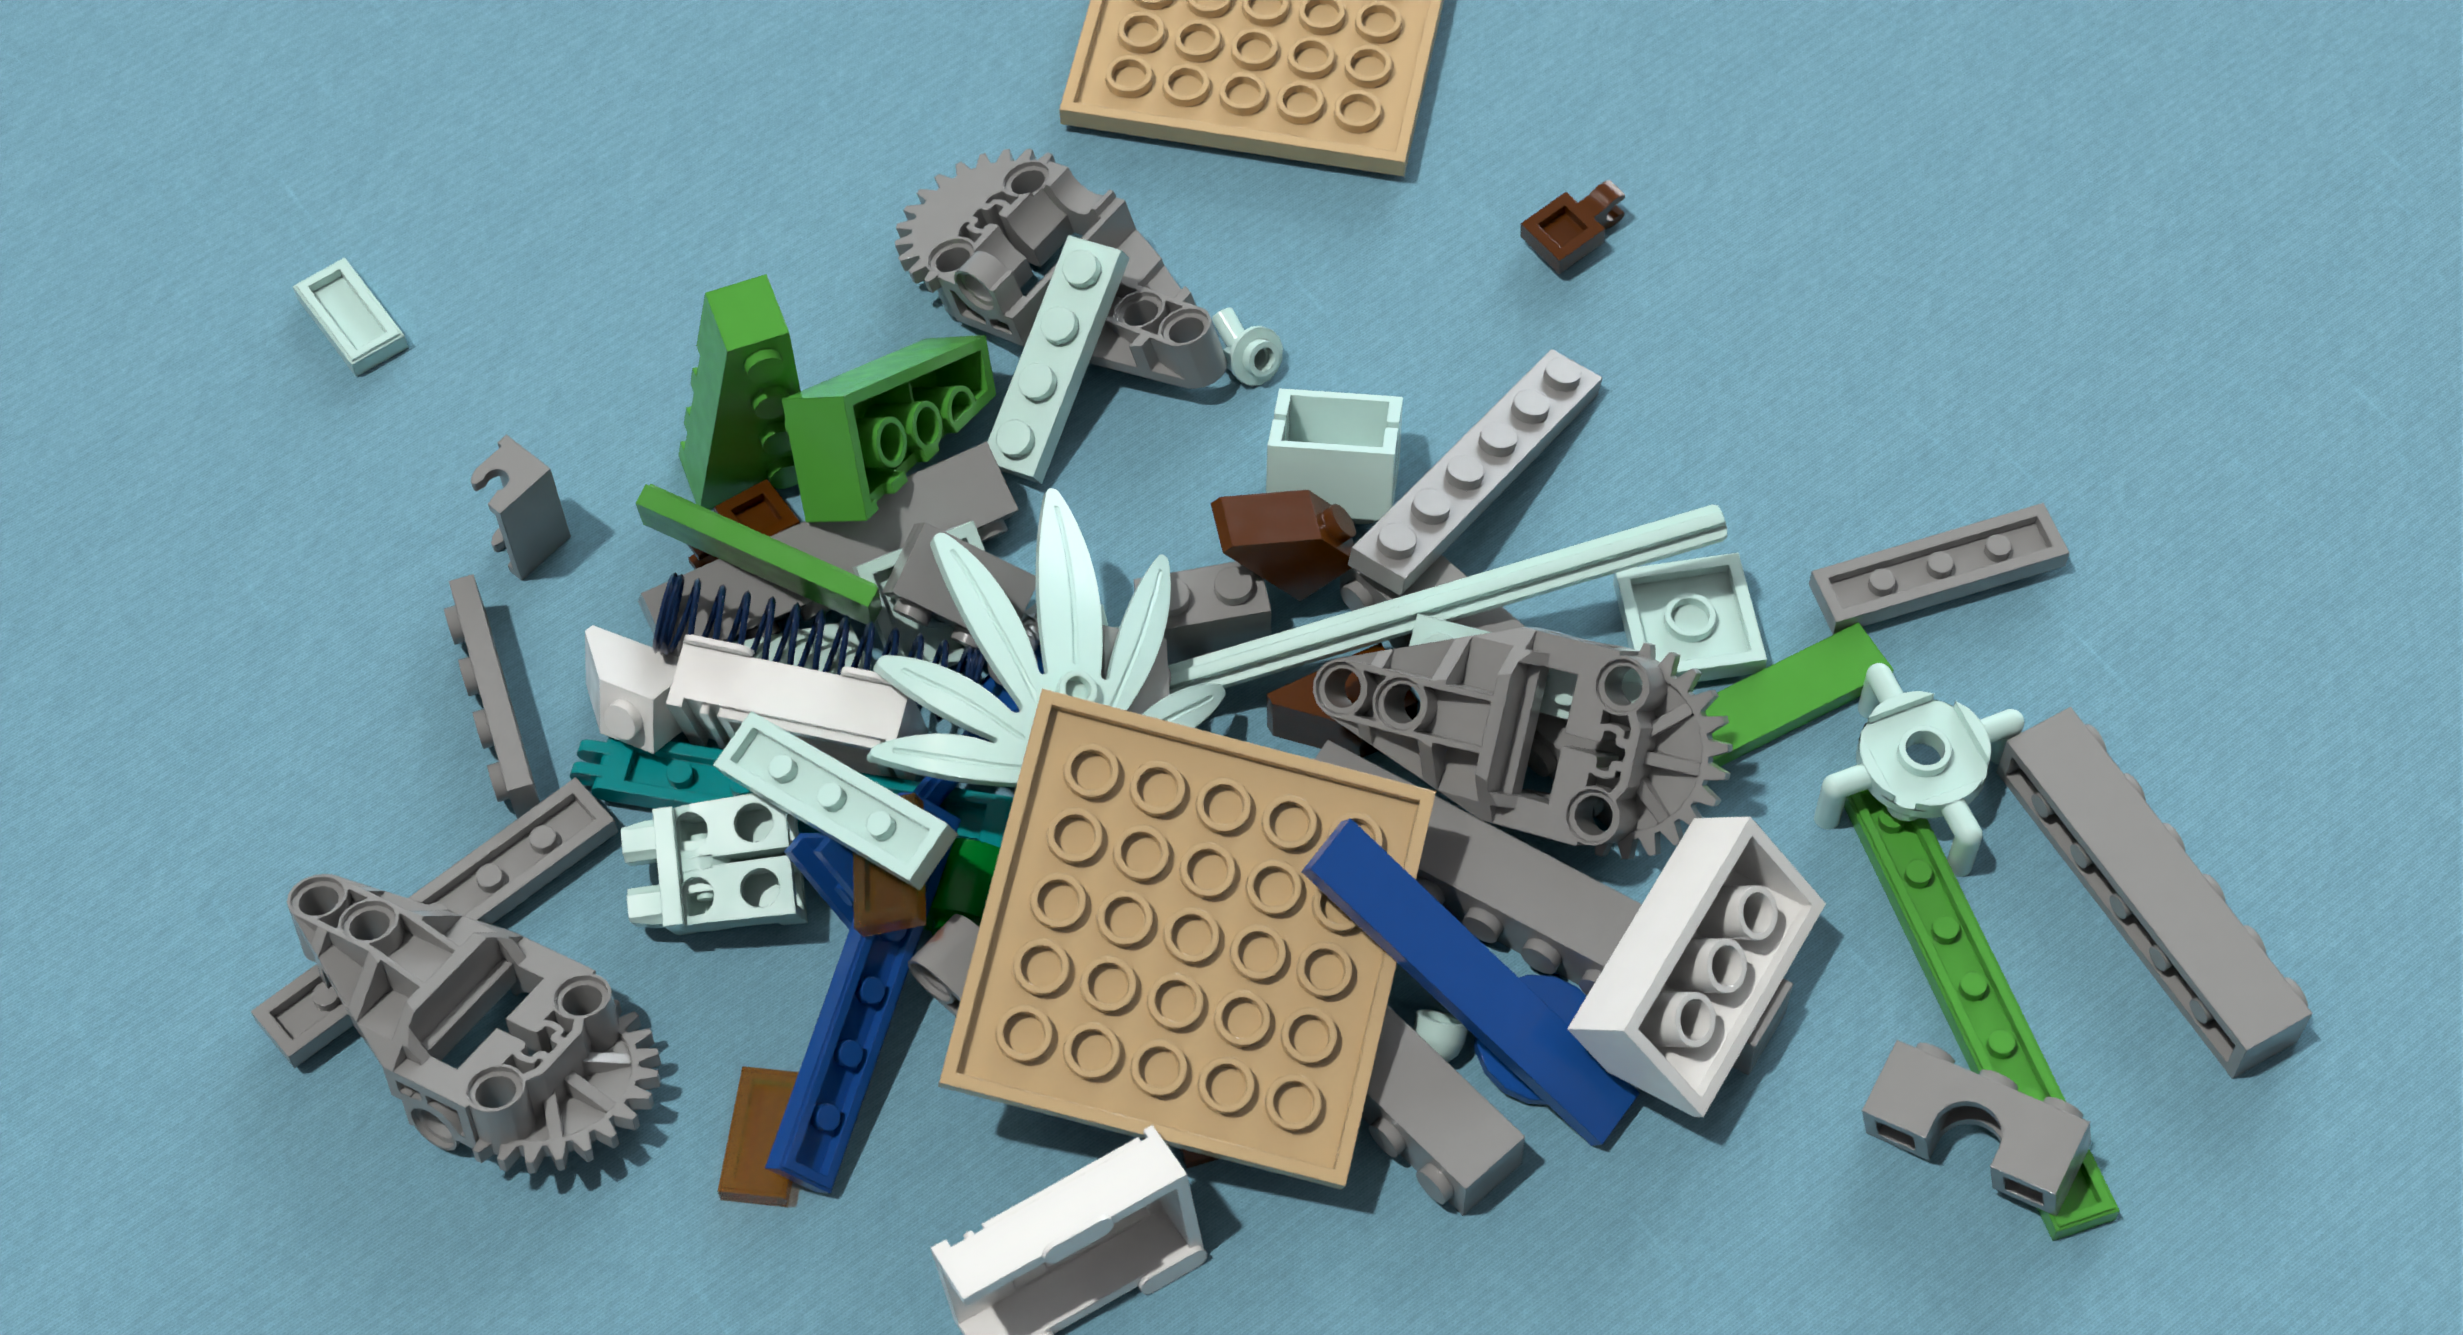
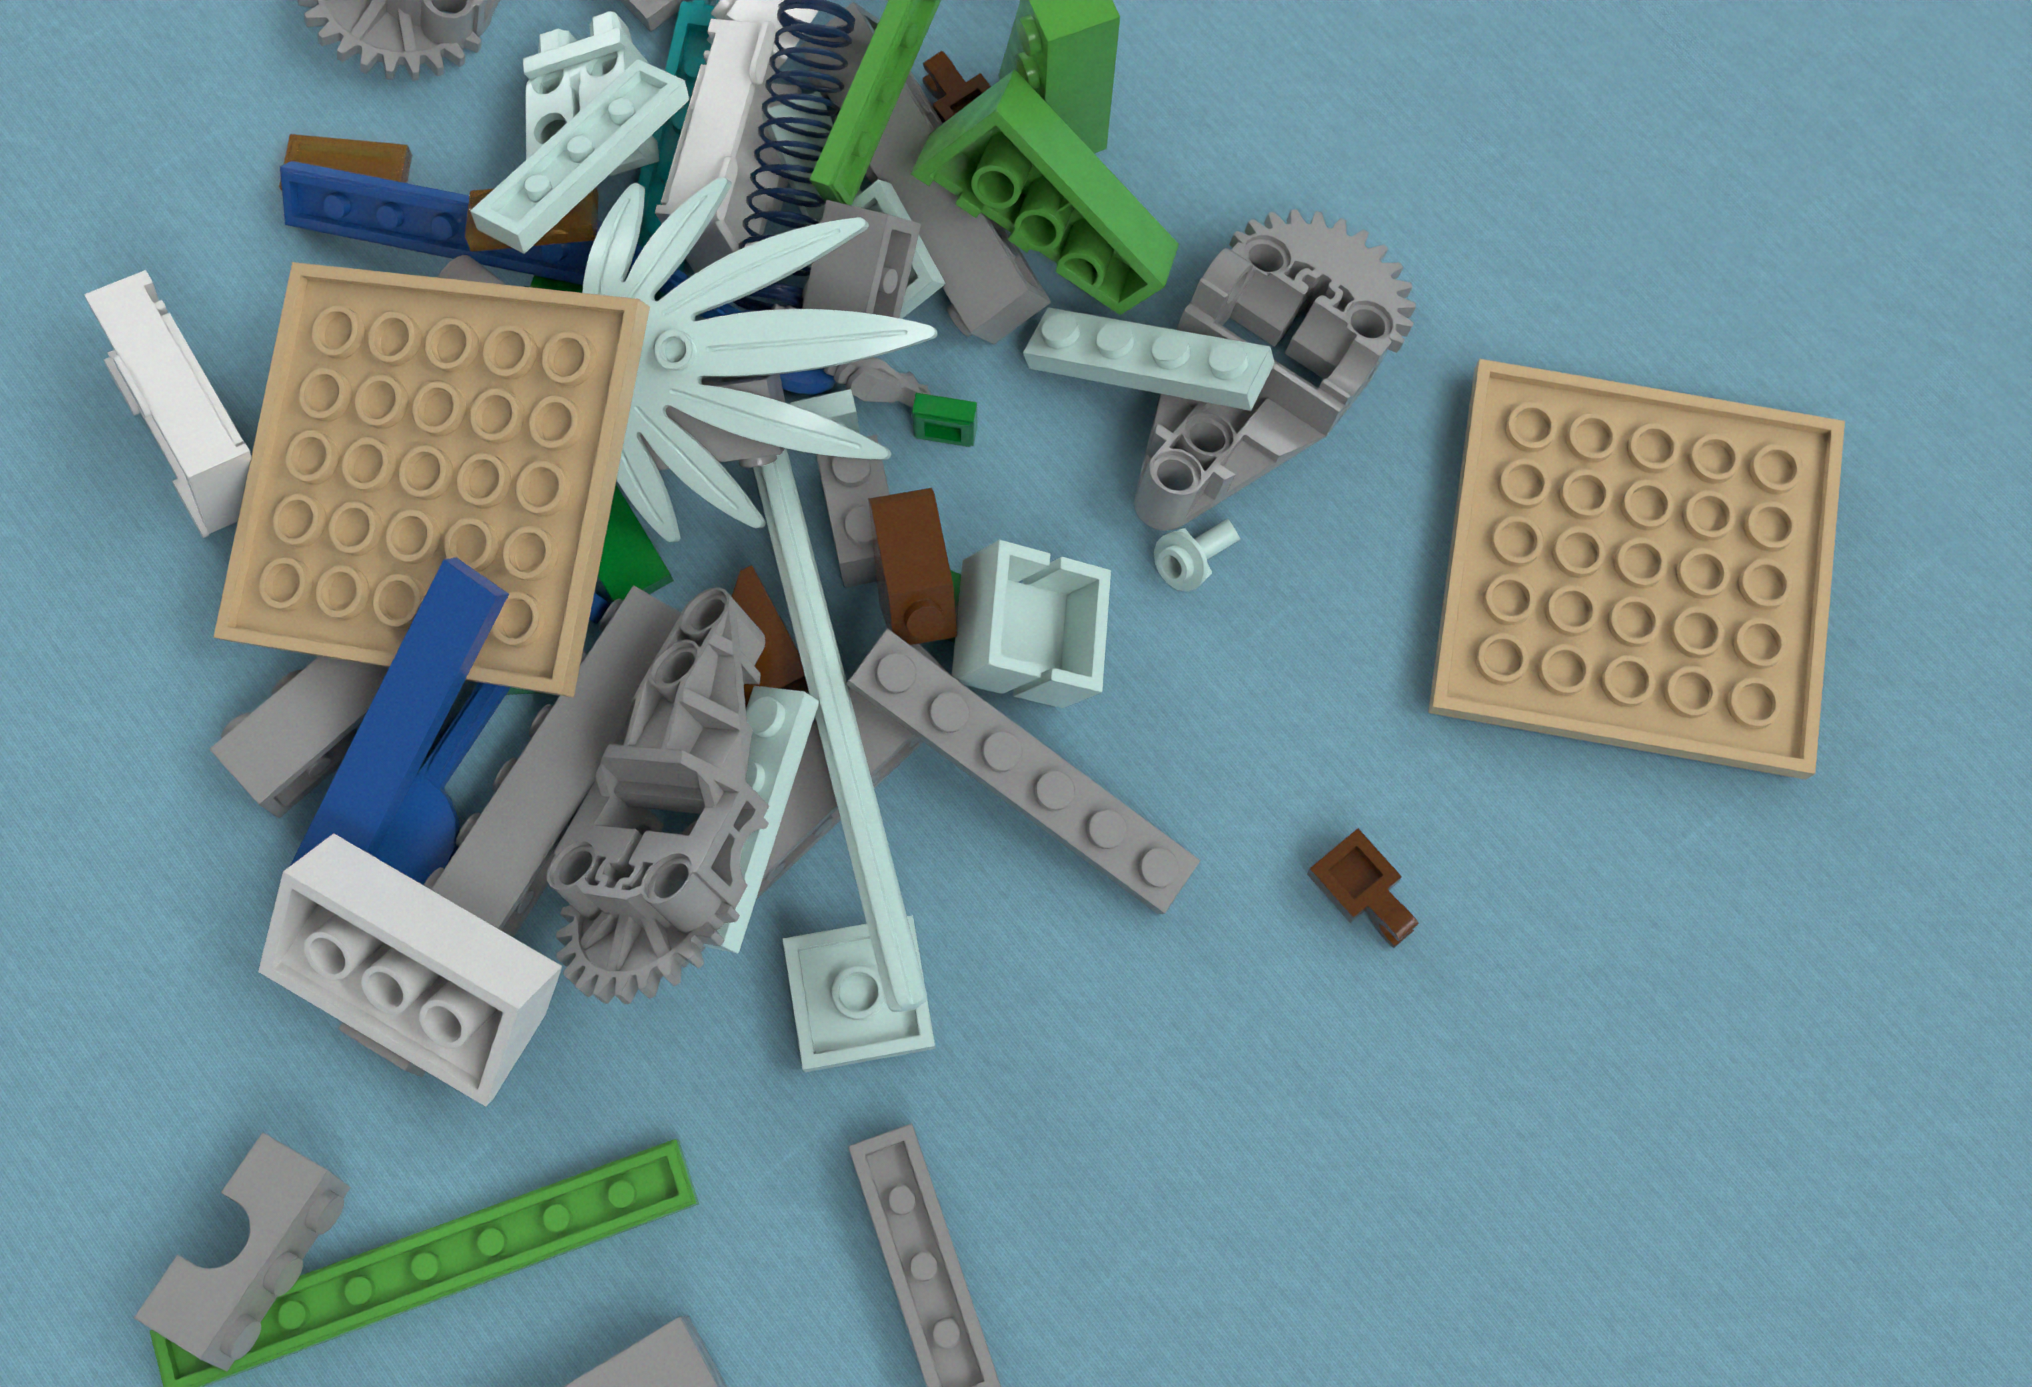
camera: 85 degrees right, 15 degrees up
(1105, 542) = (944, 419): none -> green tile
(1794, 691) = (766, 1077): bright green tile -> none
(1913, 788) = (707, 1235): light aqua plate -> none

